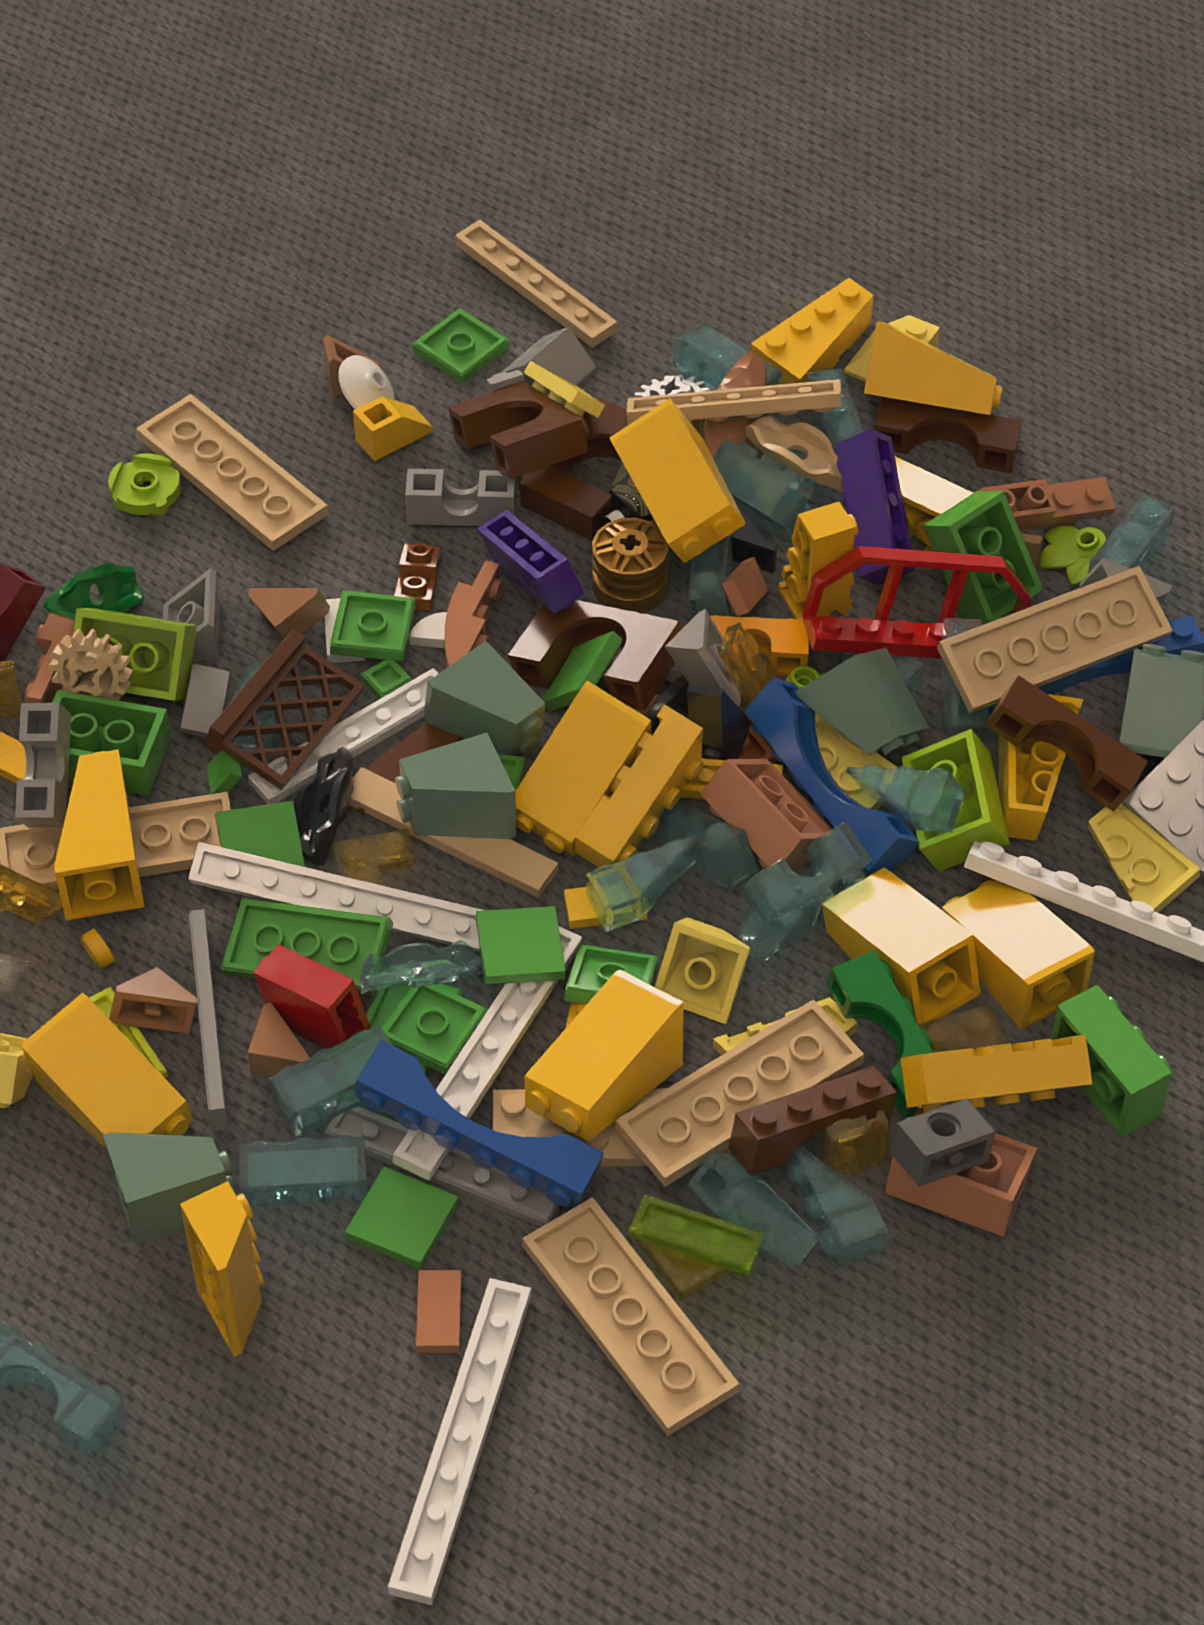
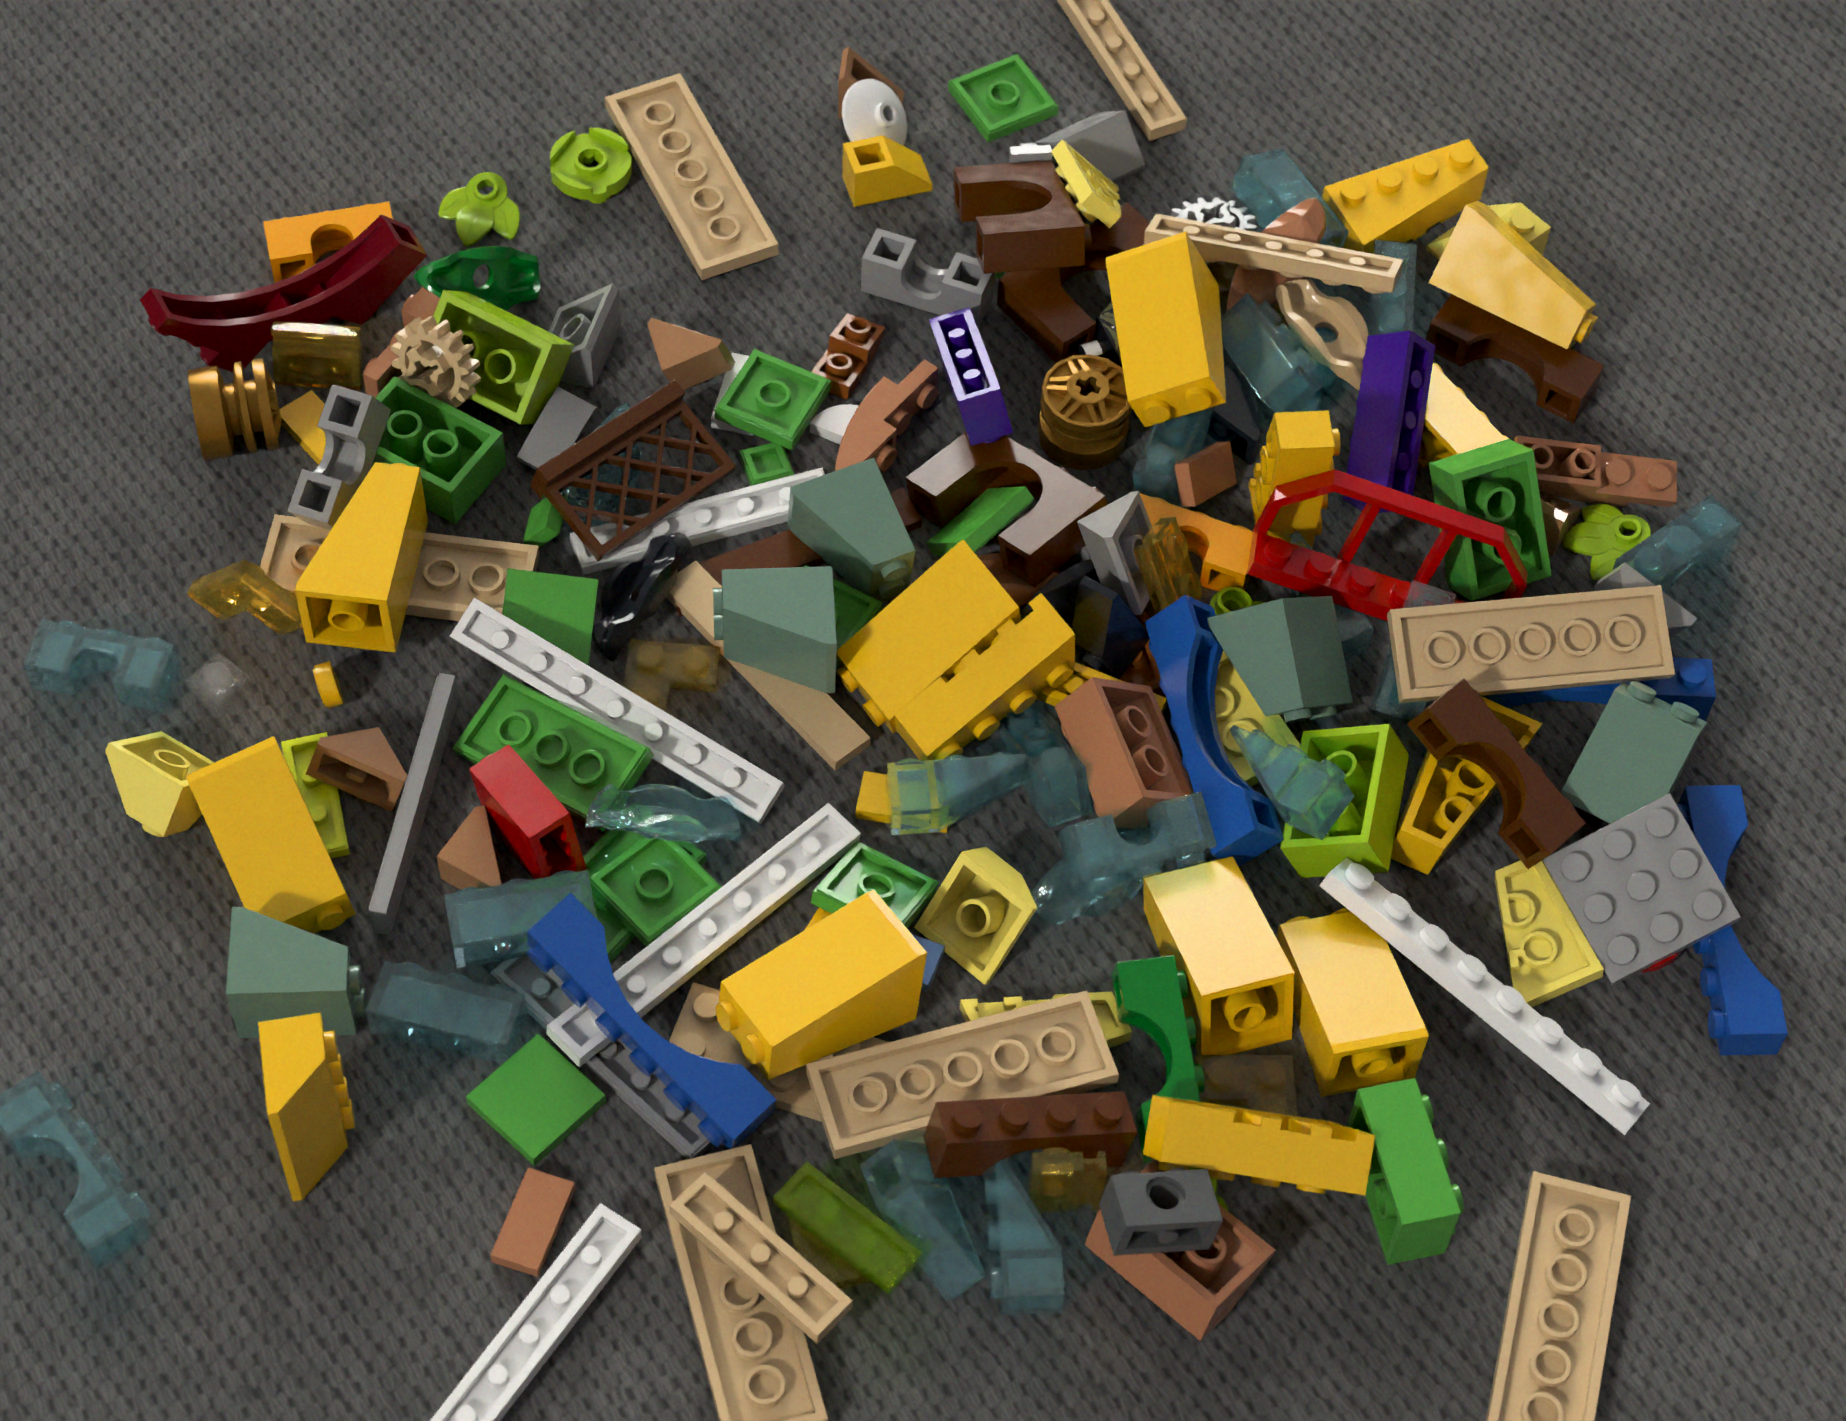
camera: 15 degrees right, 5 degrees up
(67, 547) = (480, 213): none -> lime plate
(520, 945) = (784, 823): bright green tile -> none
(638, 1276) = (761, 1257): none -> tan plate

